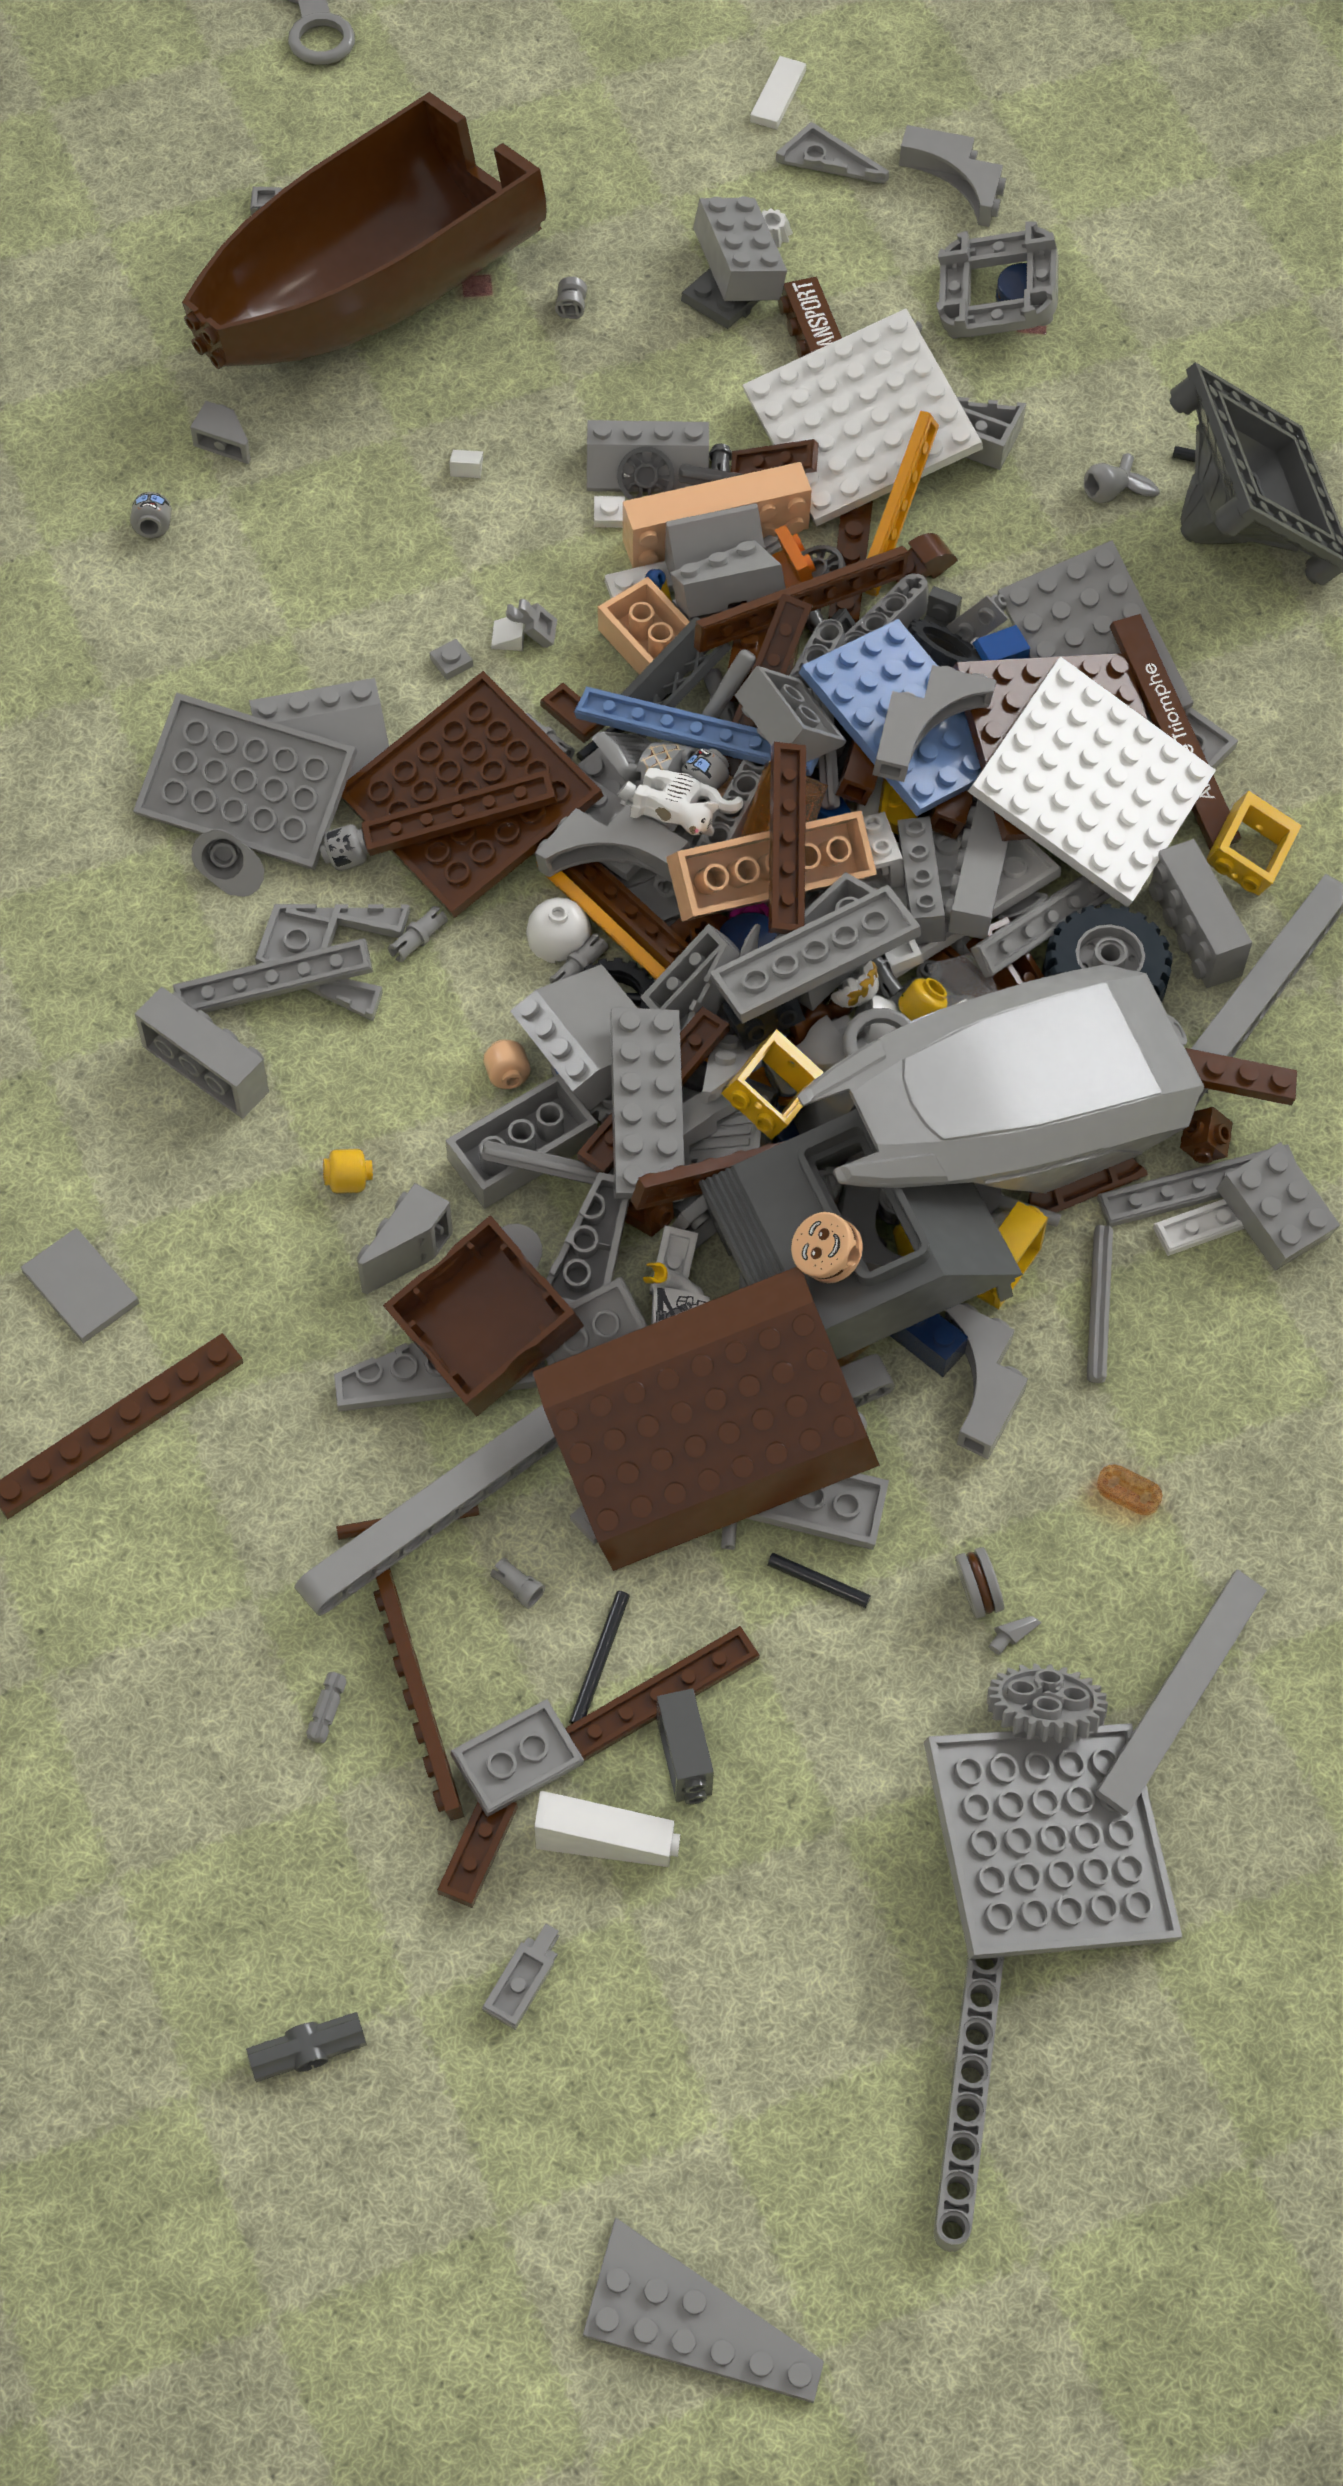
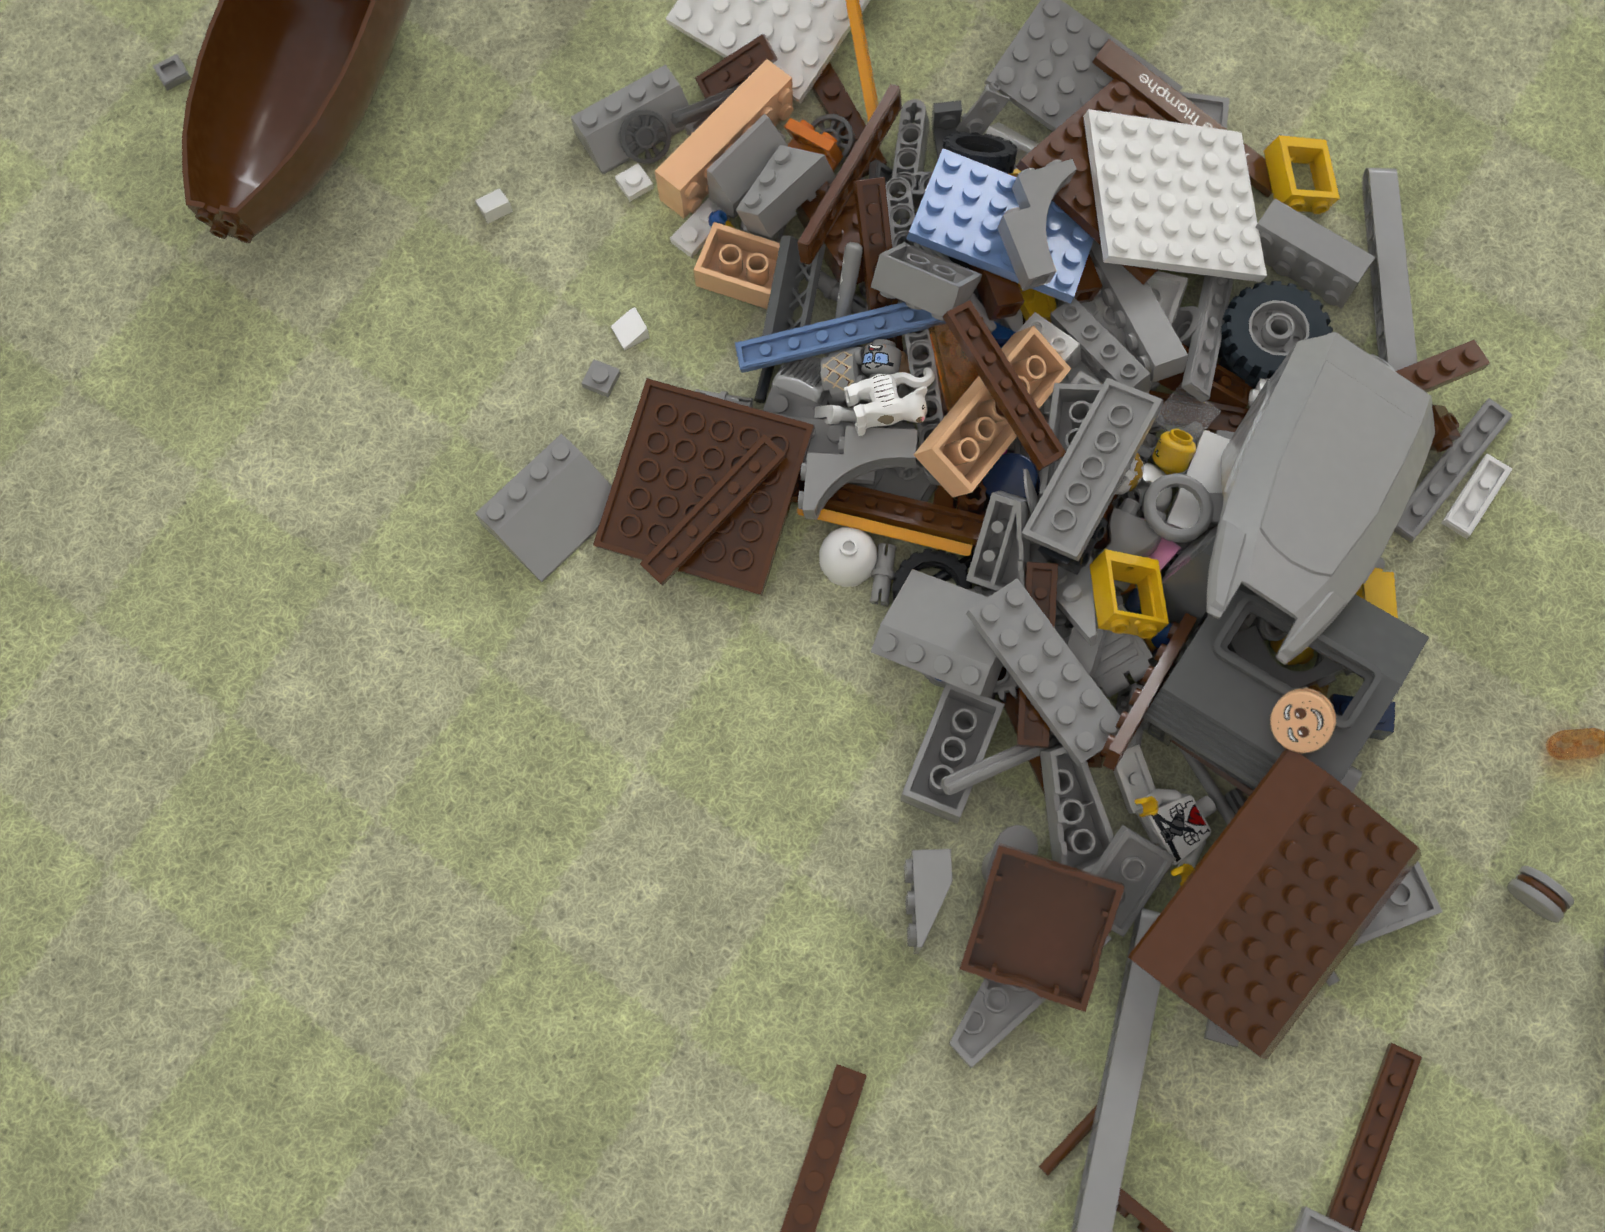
camera: 30 degrees left, 10 degrees up
(80, 1285) = (693, 1096): light grey tile -> none
(150, 515) = (274, 397): light grey head -> none
(202, 1051) = (654, 838): light grey brick -> none
(220, 432) = (280, 293): light grey slope -> none
(228, 863) = (554, 660): light grey piece -> none
(245, 778) = (519, 583): light grey plate -> none
(277, 976) = (660, 738): light grey tile -> none
(306, 928) = (657, 693): light grey wing -> none
(344, 847) = (637, 590): light grey head -> none
(347, 1171) = (835, 864): yellow head -> none
(417, 934) = (743, 627): light grey pin -> none
(477, 286) = (399, 51): piece -> none
(505, 1062) = (891, 694): light nougat head -> none
(524, 1587) = (1216, 1121): light grey pin -> none
(538, 622) = (647, 307): light grey plate -> none
(561, 705) = (723, 367): reddish brown tile -> none
(571, 298) = (476, 16): light grey wheel -> none
(600, 1656) = (1308, 1139): black bar -> none
(685, 1746) = (1436, 1177): dark grey window -> none
(720, 457) = (690, 89): dark grey pin -> none
(819, 1580) = (1417, 965): black bar -> none
(929, 556) = (906, 76): reddish brown brick -> none
(995, 1386) = (1435, 731): light grey arch -> none
(1003, 645) = (1020, 124): blue slope -> none
(1012, 1633) = (1580, 913): light grey bar -> none
(1100, 1304) = (1452, 609): light grey axle -> none
(1278, 1206) = (1525, 453): light grey brick -> none

